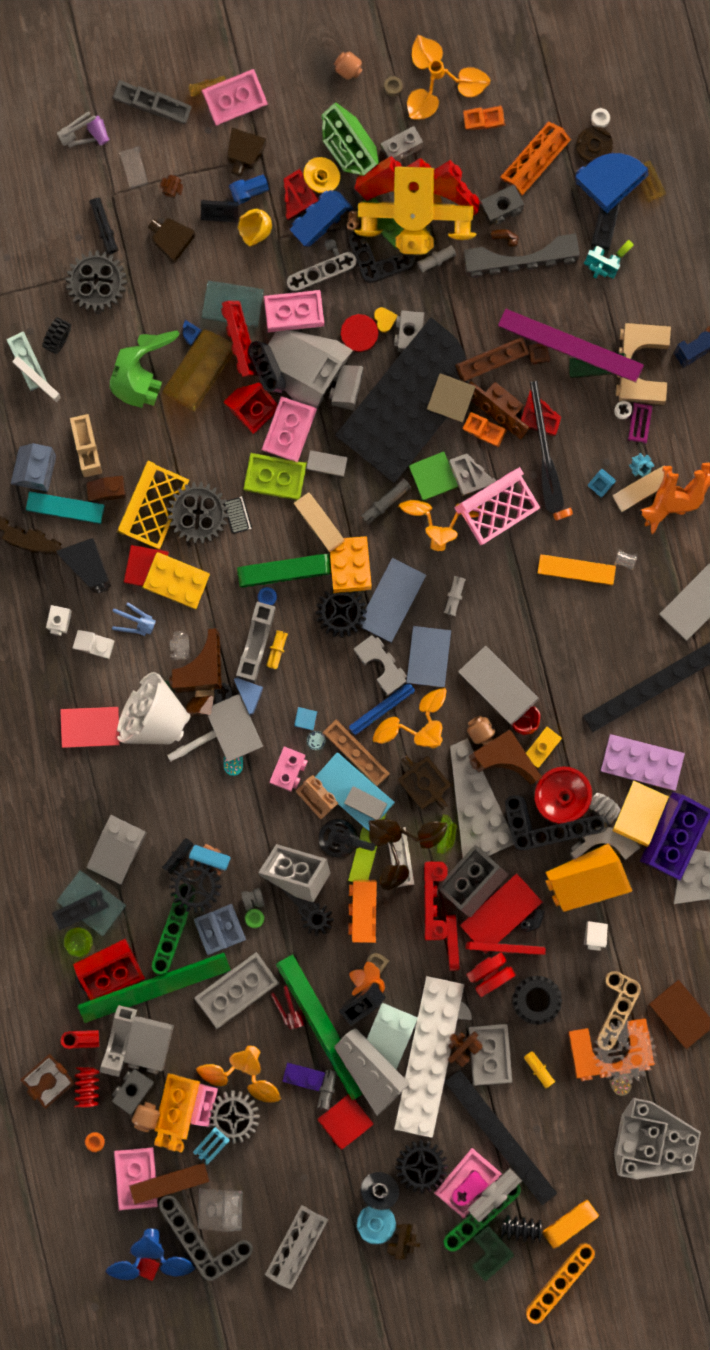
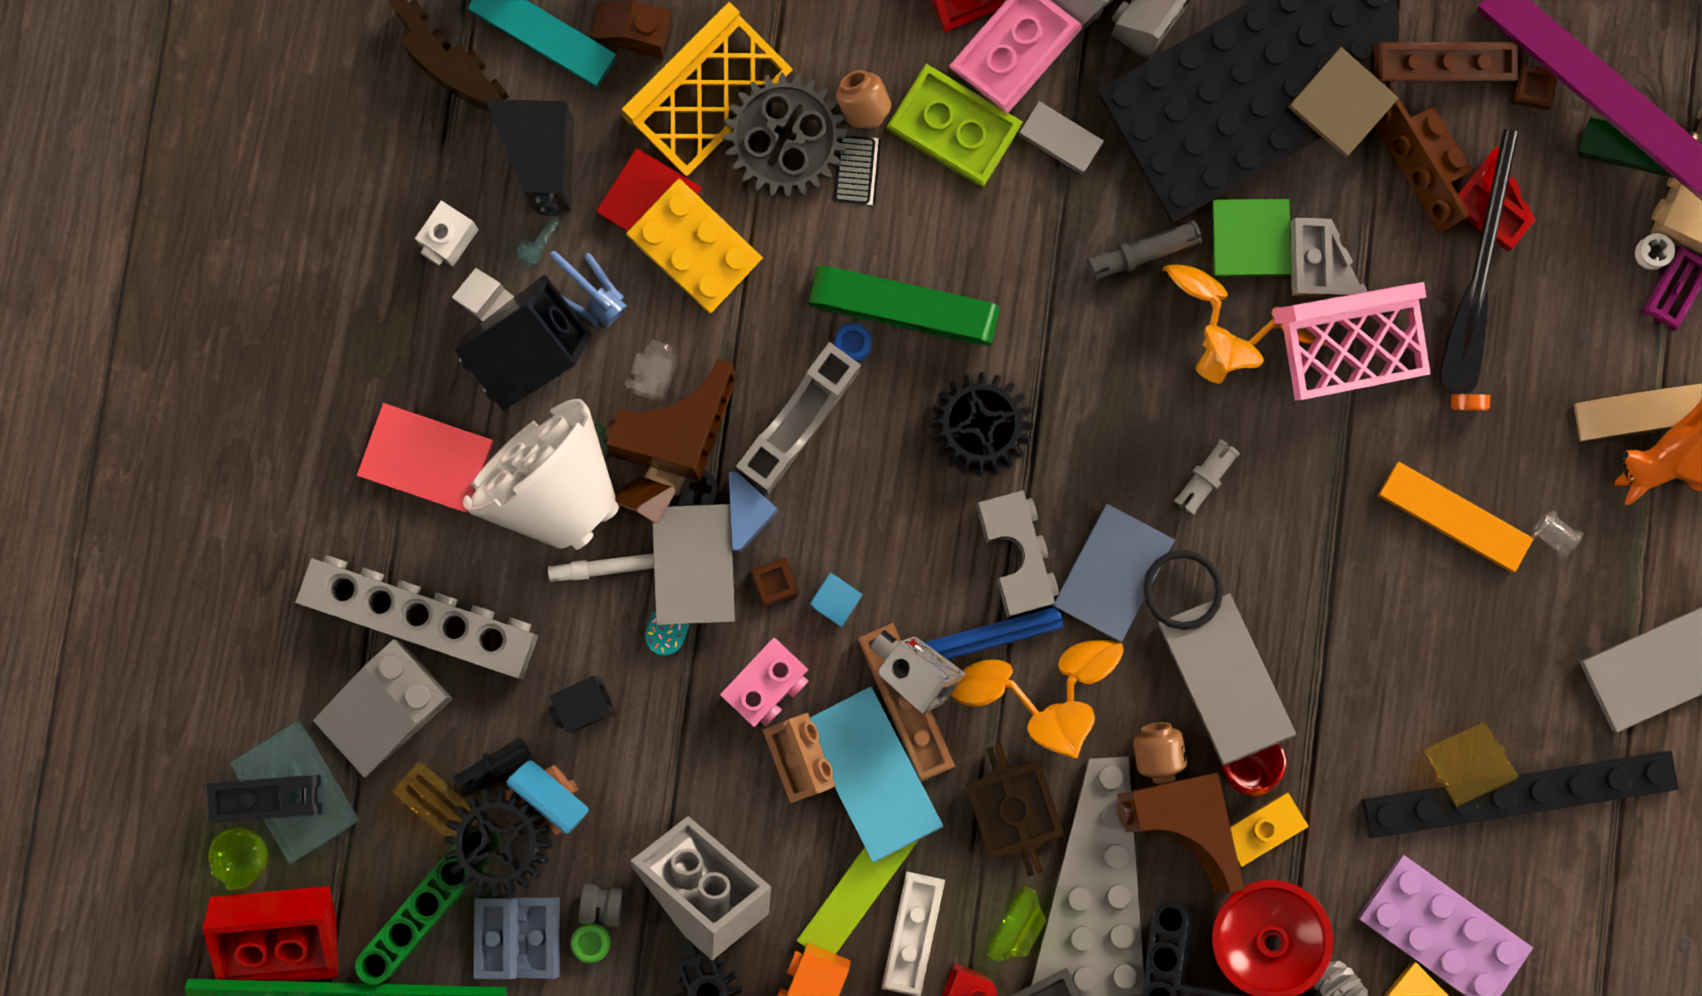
camera: 15 degrees right, 0 degrees up
(67, 809) = (320, 593): none -> light grey brick
(100, 613) = (532, 252): none -> clear light blue hand
(116, 656) = (524, 344): none -> black slope
(142, 877) = (410, 779): none -> clear yellow tile
(208, 811) = (581, 705): none -> black brick
(228, 482) = (863, 99): none -> medium nougat head
(274, 721) = (774, 582): none -> reddish brown tile
(276, 649) = (832, 448): yellow axle -> none
(316, 740) = (839, 648): clear light blue tile -> none
(319, 522) = (1004, 239): tan slope -> none
(349, 838) = (809, 851): black dish -> none
(351, 566) = (1032, 342): light orange plate -> none
(355, 736) = (916, 671): none -> light grey torso
(365, 803) = (887, 808): light grey tile -> none
(386, 831) = (911, 881): dark brown plant -> none
(392, 600) = (1085, 439): sand blue tile -> none
(463, 635) = (1154, 609): none -> black piece
(484, 430) = (1379, 189): orange slope -> none
(601, 483) = (1562, 372): dark azure slope -> none
(625, 680) = (1470, 764): none -> clear yellow piece
(641, 465) = (1654, 367): medium azure gear -> none

